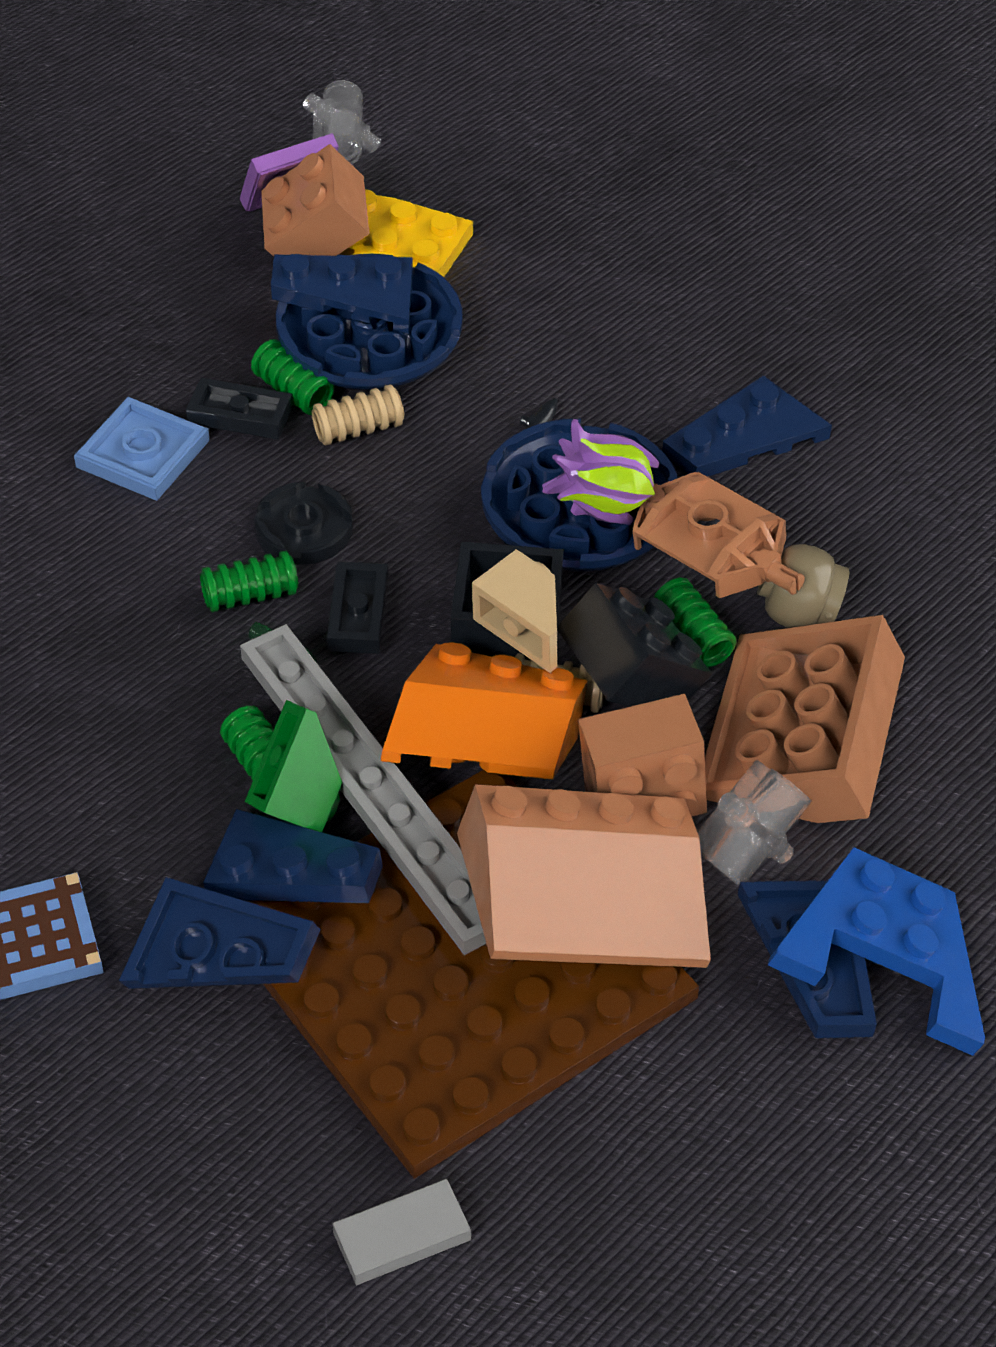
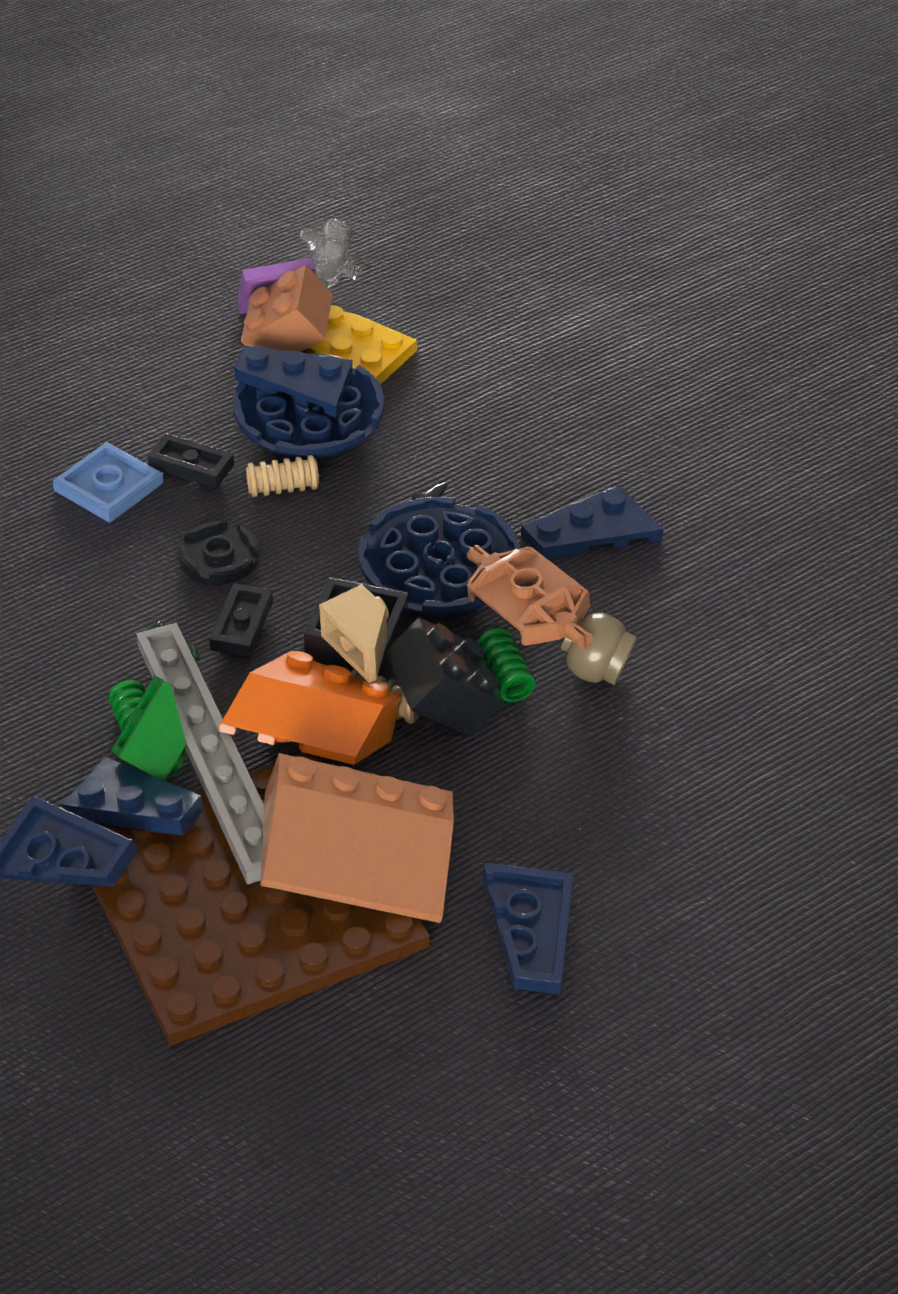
camera: 10 degrees right, 5 degrees down
(249, 581) = (161, 590): green piece -> none
(286, 376) = (232, 439): green piece -> none
(401, 1231) = (147, 1081): light grey tile -> none
(603, 475) = (451, 539): medium lavender hair -> none
(646, 752) = (429, 752): nougat brick -> none
(752, 823) = (503, 820): clear pin -> none
(811, 709) = (574, 750): nougat slope -> none
(897, 924) = (597, 909): blue wing -> none

